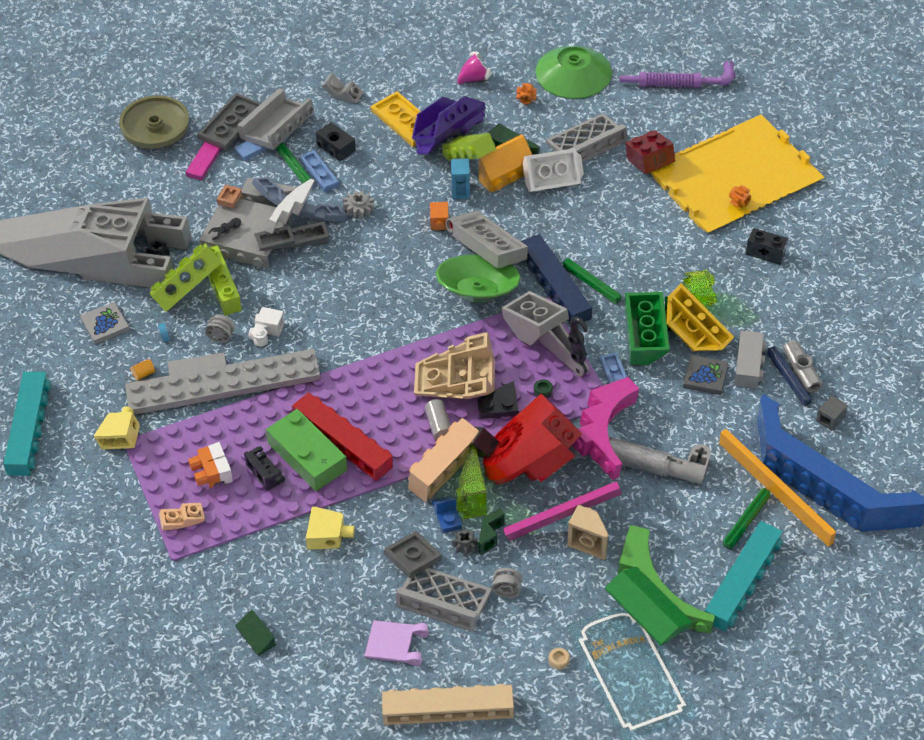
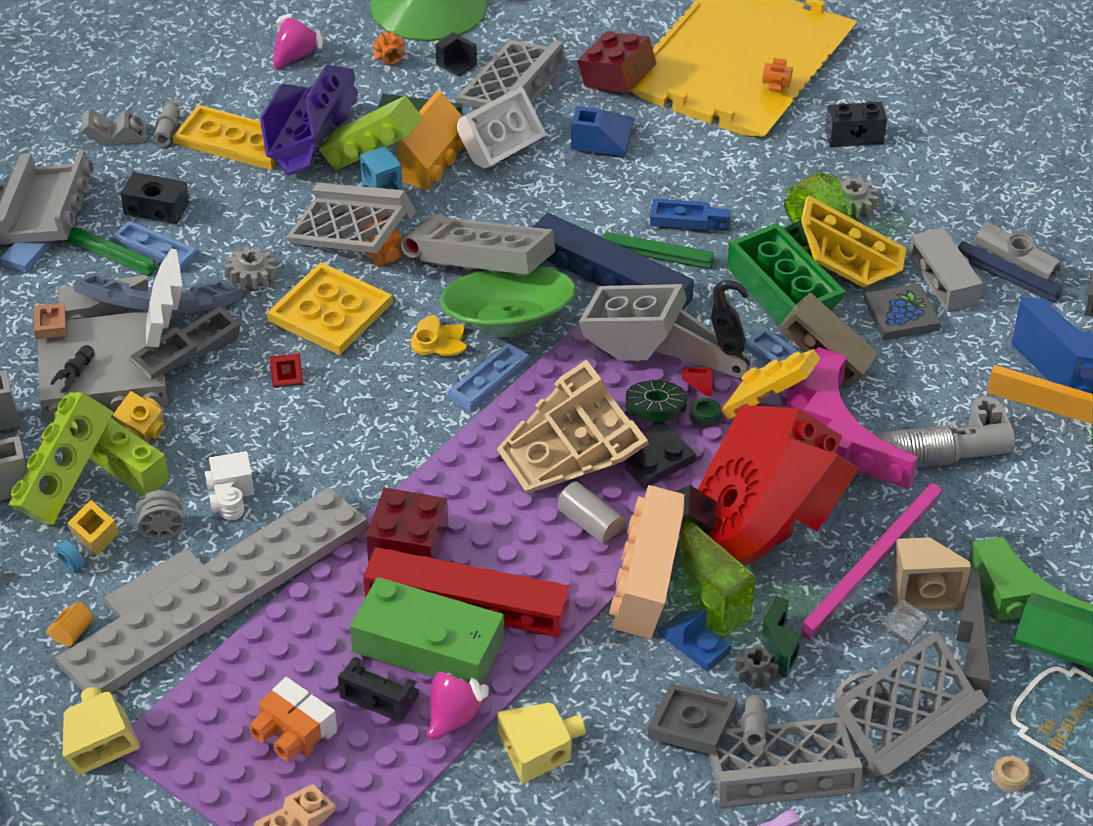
camera: 30 degrees left, 5 degrees down
(182, 322) = (93, 528): none -> yellow brick
(243, 270) = (140, 416): none -> yellow brick
(293, 492) = (453, 703): none -> dark pink hat
(336, 387) = (408, 523): none -> dark red brick
(338, 272) = (286, 369): none -> red slope
(372, 96) = (166, 123): none -> light grey pin
(385, 245) = (329, 308): none -> yellow plate
(429, 286) = (438, 338): none -> yellow plate
(437, 188) = (354, 202): none -> light grey fence
(440, 570) = (754, 722): none -> light grey pin
(444, 320) = (489, 377): none -> medium blue tile
(513, 364) = (656, 400): none -> tile
(527, 614) = (918, 733): none -> light grey fence
(554, 368) = (699, 378): none -> red slope
(563, 111) = (456, 54): none -> black panel
(563, 553) = (905, 622): none -> clear plate
(582, 385) = (774, 376): none -> yellow wing
(597, 569) = (973, 631): none -> dark grey slope
(611, 192) = (600, 131): none -> blue slope
(624, 265) = (688, 215): none -> blue hinge
(634, 365) = (815, 326): none -> dark tan brick
(730, 292) = (859, 195): none -> light grey gear

